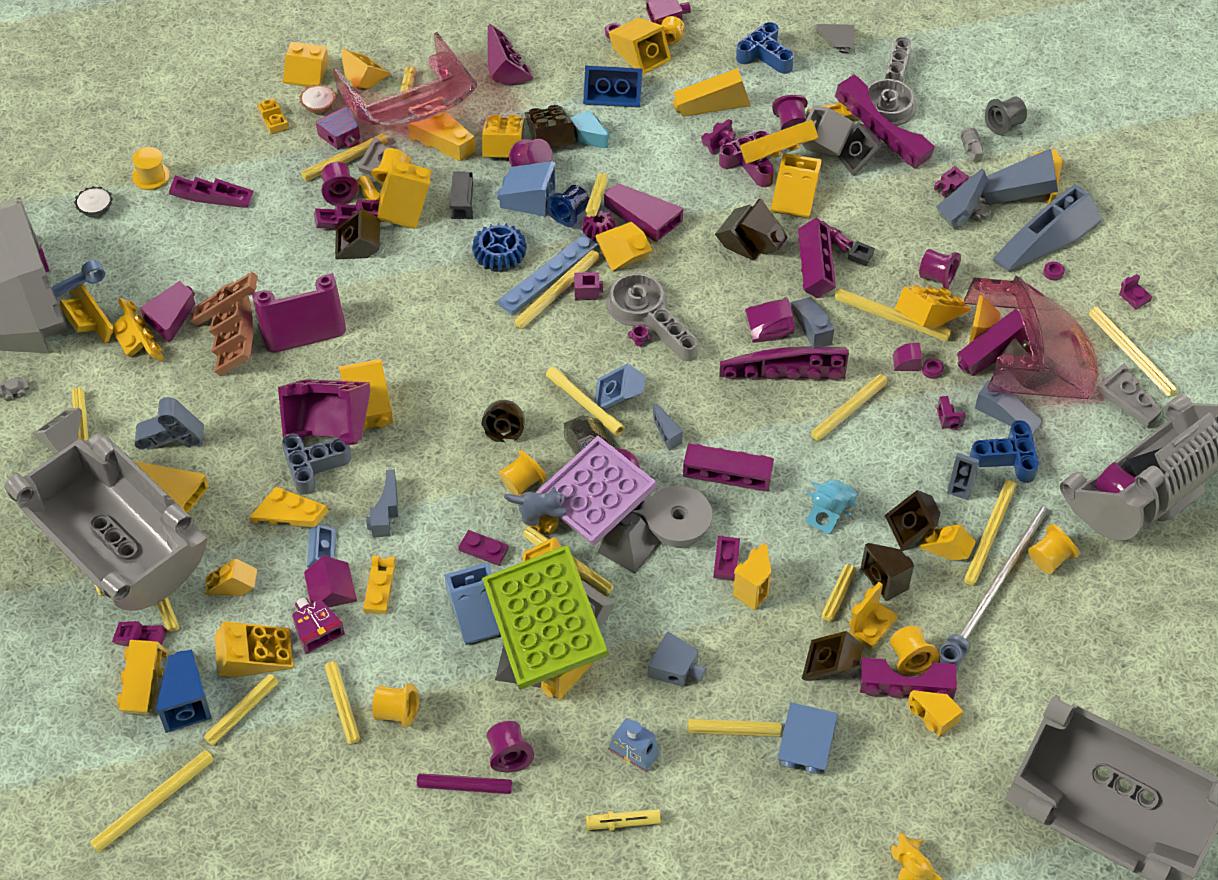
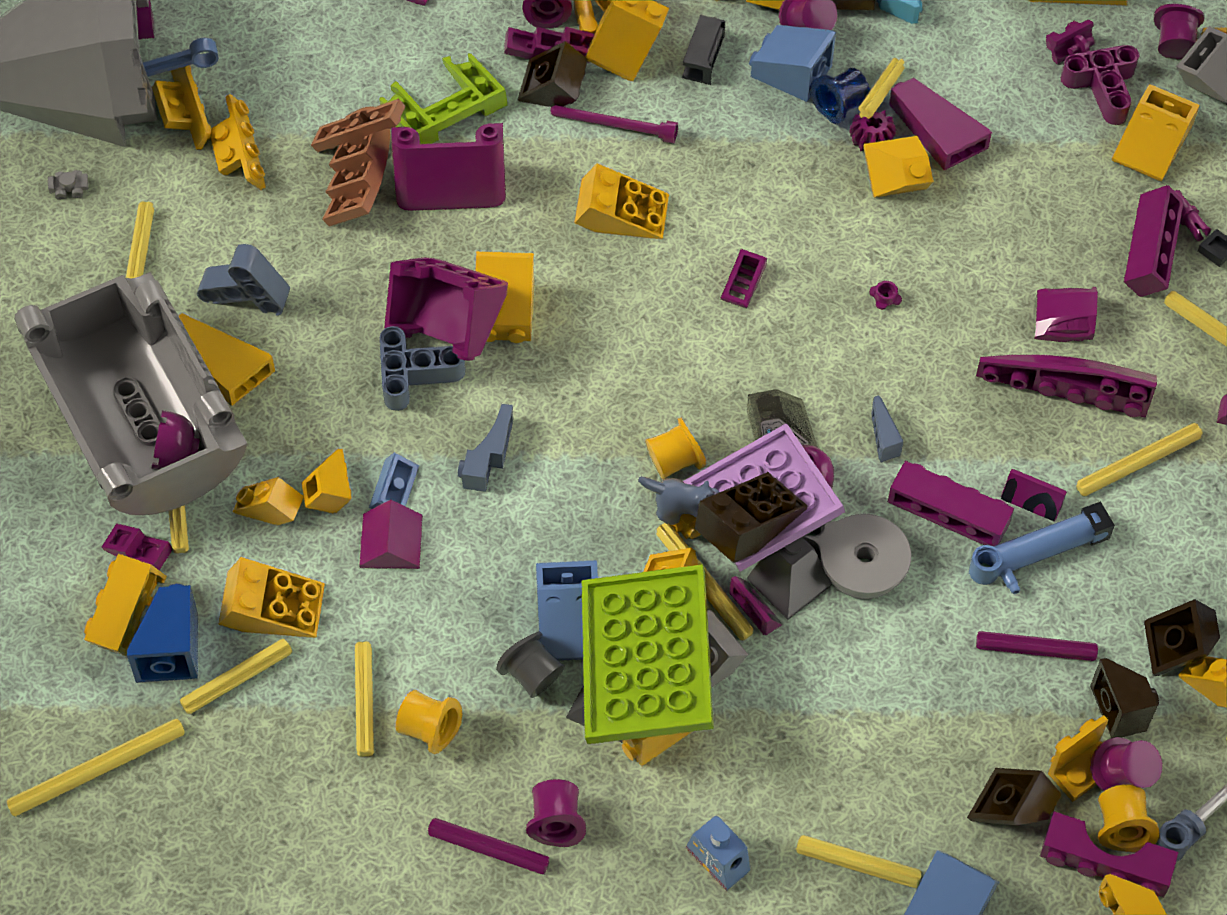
camera: 15 degrees right, 5 degrees up
(60, 431) = (111, 254): light grey slope -> none
(149, 549) = (174, 440): none -> magenta cylinder
(169, 310) = (288, 123): magenta slope -> none
(273, 557) = (328, 485): none -> yellow slope
(289, 508) = (366, 424): yellow wing -> none
(304, 258) = (478, 93): none -> lime wedge
(316, 624) = (357, 588): magenta torso -> none
(379, 585) = (453, 554): yellow plate -> none
(431, 314) = (620, 205): none -> yellow slope
(450, 256) = (666, 131): none -> magenta piece
(460, 647) = (530, 664): none -> dark grey piece
(483, 547) = (600, 536): magenta plate -> none
(499, 252) = (729, 138): blue gear -> none
(502, 417) = (668, 367): dark brown cylinder -> none
(536, 331) = (750, 259): none -> magenta slope
(546, 275) = (787, 183): medium blue plate -> none
(556, 289) = (793, 206): light yellow axle -> none
(587, 285) = (834, 211): magenta brick -> none
(589, 505) = (747, 516): none -> dark brown slope
(607, 420) = (808, 402): light yellow piece -> none
(608, 570) = (753, 606): none -> magenta slope
(619, 386) = (835, 361): medium blue slope -> none
(642, 301) = (879, 255): light grey beam -> none
(675, 662) = (805, 753): sand blue torso -> none
(726, 557) = (913, 628): magenta plate -> none
(734, 237) = (1066, 183): dark brown slope -> none
(753, 578) = (939, 666): yellow slope -> none
(763, 228) = (1093, 184): dark brown slope -> none
(768, 499) = (1090, 526): none -> medium blue piece
(775, 143) = (1146, 67): yellow bracket -> none
(784, 447) = (1033, 495): none -> magenta slope
(814, 322) = (1124, 329): sand blue slope -> none
(816, 549) = (1037, 646): none -> magenta axle
(832, 499) = (1078, 583): medium azure piece -> none
(838, 593) = (1050, 713): light yellow axle -> none
(902, 612) = (1125, 763): none -> magenta piece

